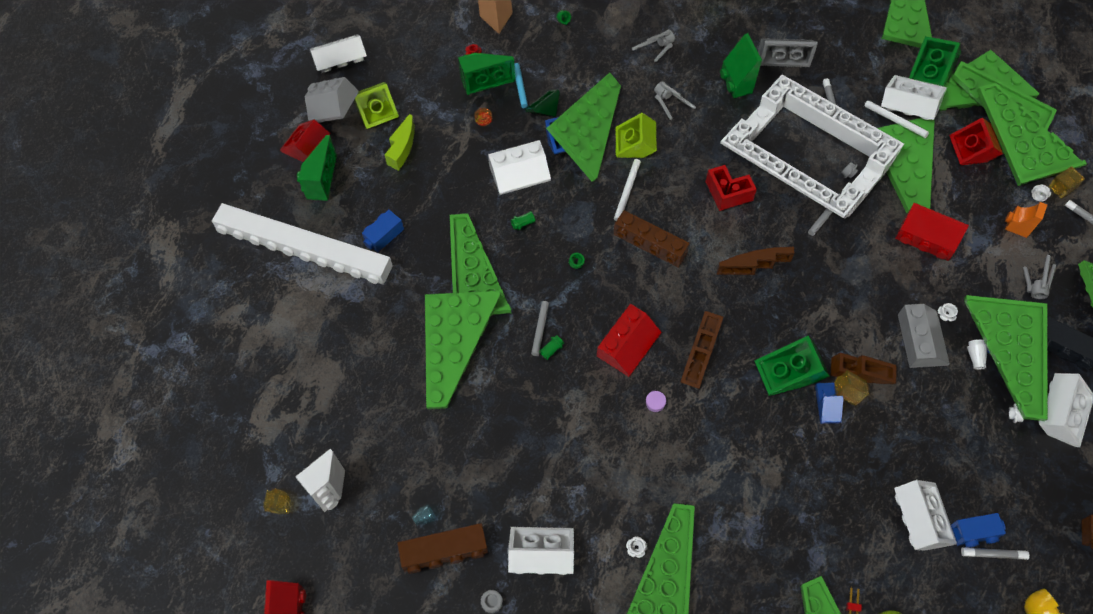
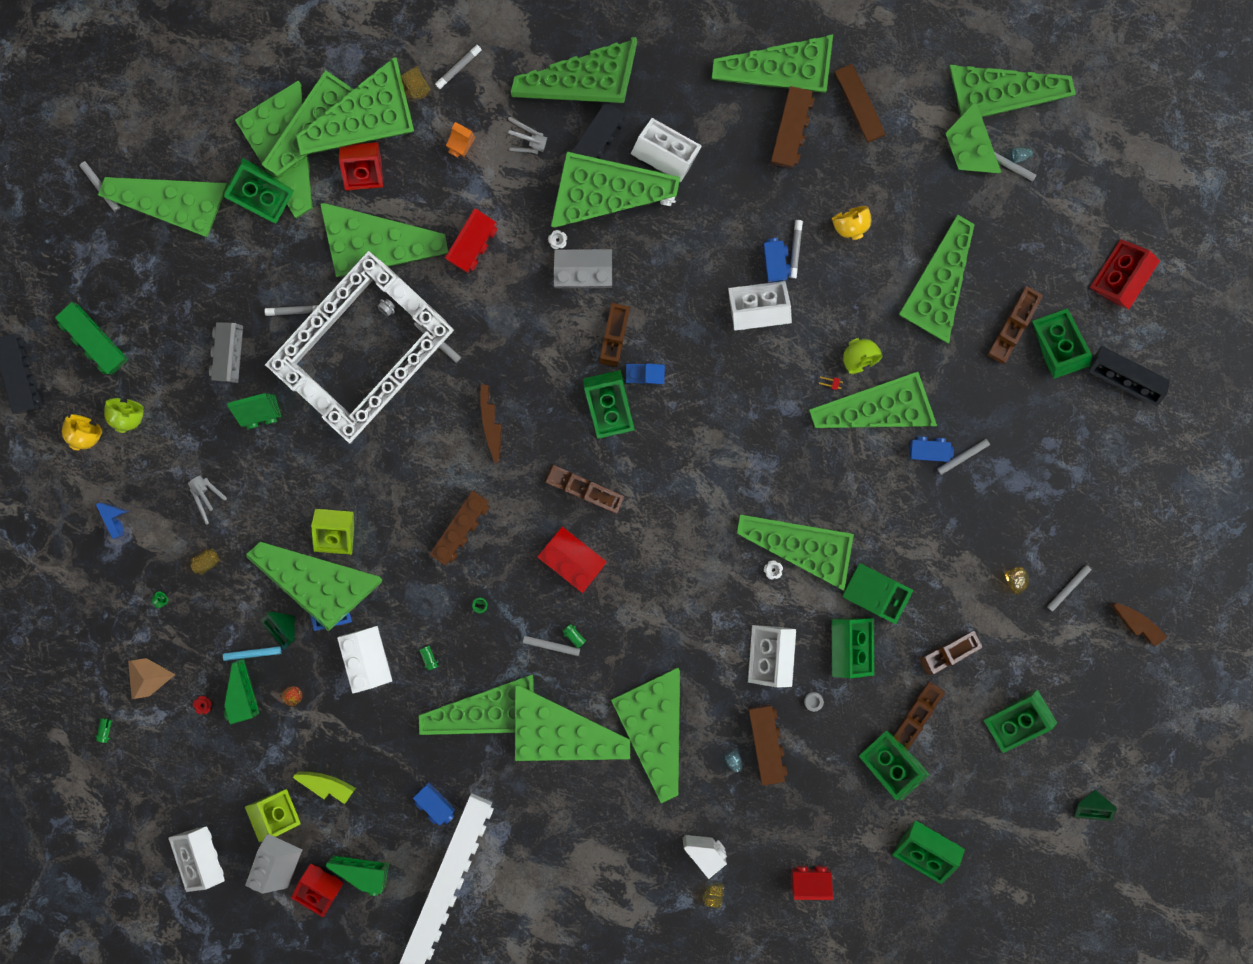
camera: 85 degrees left, 25 degrees up
(464, 428) = (652, 725): none -> bright green wing
(600, 46) = (204, 561): none -> clear yellow brick
(627, 189) = (395, 545): white bar -> none
(655, 401) = (634, 539): lavender tile -> none
(664, 92) = (272, 494): light grey plant -> none
(729, 191) = (410, 440): red brick -> none
(851, 387) = (635, 353): clear yellow brick -> none
(897, 119) = (325, 246): white bar -> none
(913, 97) = (299, 223): white slope -> none
(978, 353) = (605, 221): white cone -> none
(1040, 192) = (425, 111): white plate -> none

